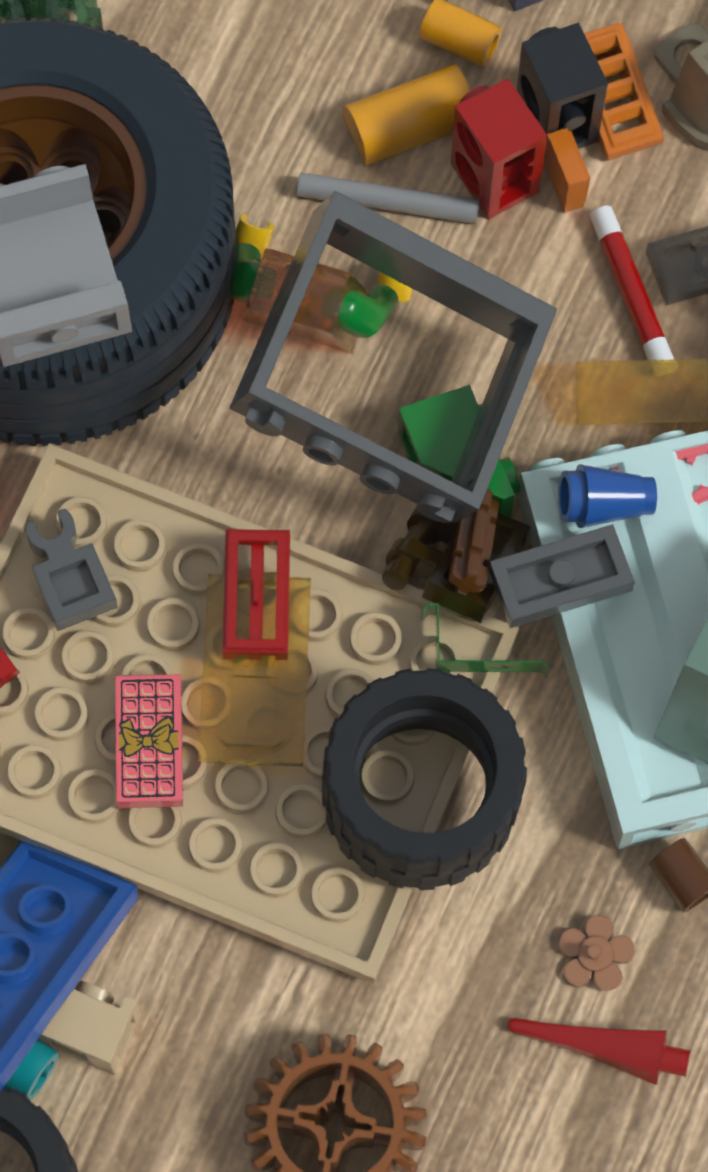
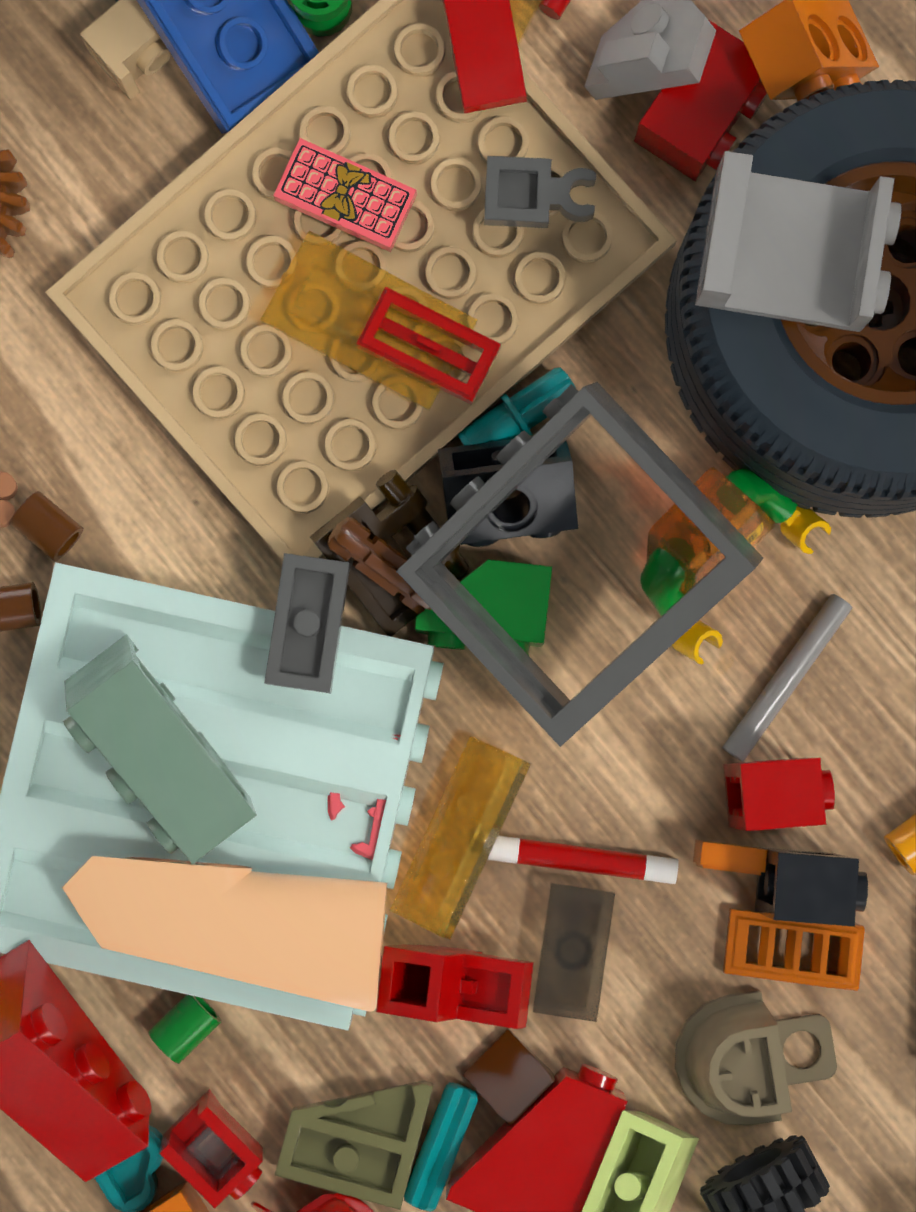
camera: 115 degrees right, 15 degrees up
(271, 510) = (519, 411): none -> teal axle
(337, 500) = (540, 509): none -> black brick
(405, 114) = (865, 739): light orange brick -> none
(440, 704) = (128, 340): black tyre -> none
(479, 665) = (248, 565): green piece -> none
(590, 877) = (46, 526): none -> reddish brown hinge
(604, 496) = (363, 703): blue cone -> none

